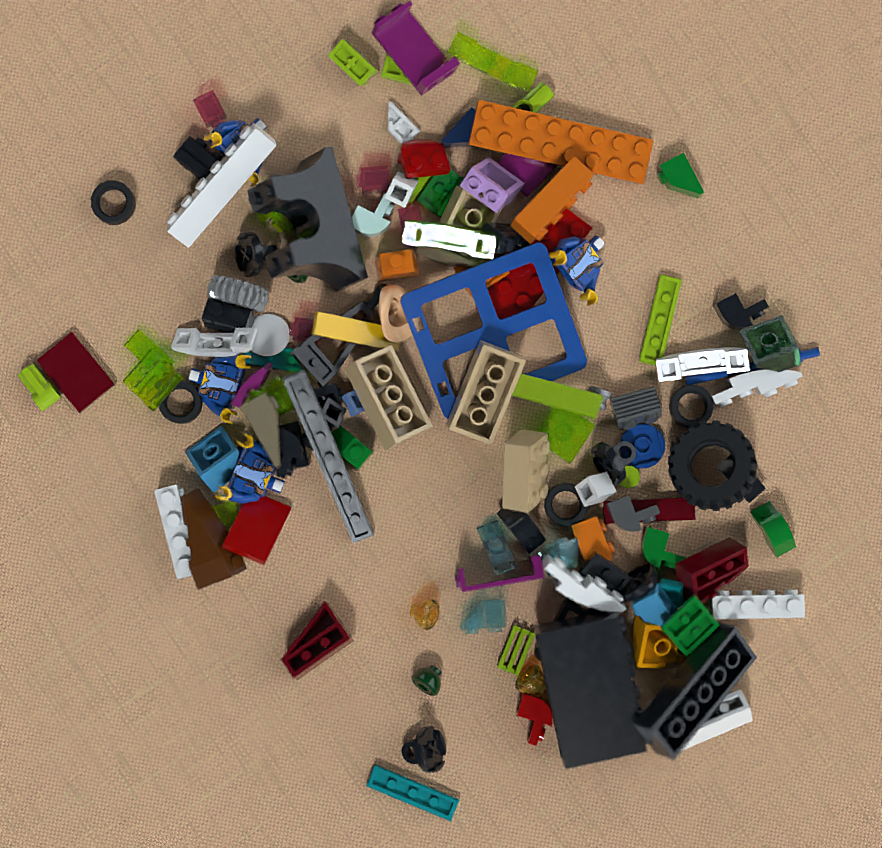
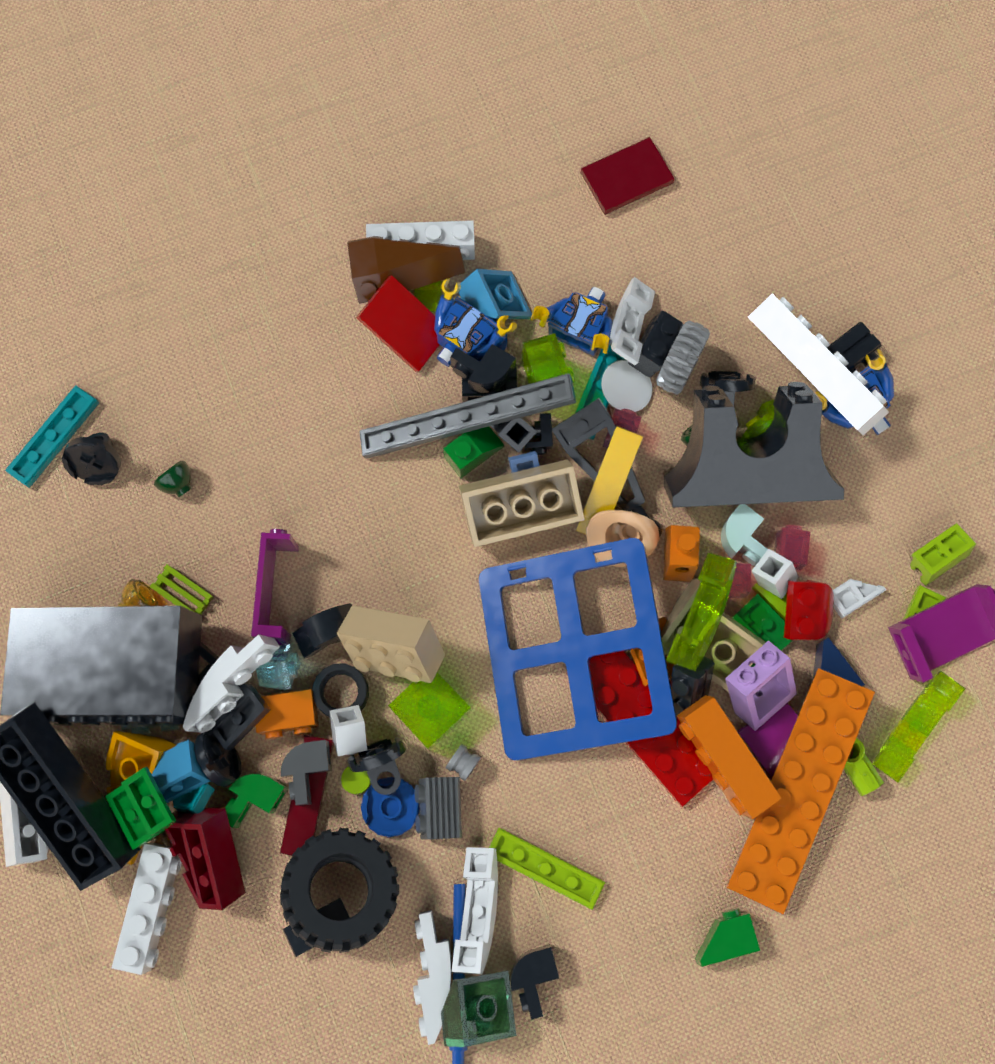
camera: 105 degrees right, 10 degrees down
(42, 392) = (612, 136): lime piece -> none
(113, 185) = (826, 235): black tyre -> none
(140, 344) = (632, 256): clear neon green slope -> none
(153, 379) = (601, 248): clear neon green slope -> none
(193, 414) = (571, 256): black tyre -> none
(210, 109) = (911, 377): clear pink brick -> none
(254, 382) = (575, 352): magenta slope -> none
(265, 422) = (519, 344): dark tan slope -> none
(317, 643) = (253, 363): dark red wedge -> none
(425, 613) = (253, 494): clear yellow brick -> none
(485, 392) = (501, 620): tan brick -> none
(486, 614) = (231, 565): clear light blue slope -> none
(496, 547) = (309, 594): clear light blue slope -> none
(538, 711) = (102, 592): red brick -> none
(558, 395) = (476, 707): lime tile -> none
(579, 264) = (639, 776): torso -> none
(700, 391) = (439, 900): black tyre -> none
(774, 529) = (240, 955): green brick -> none

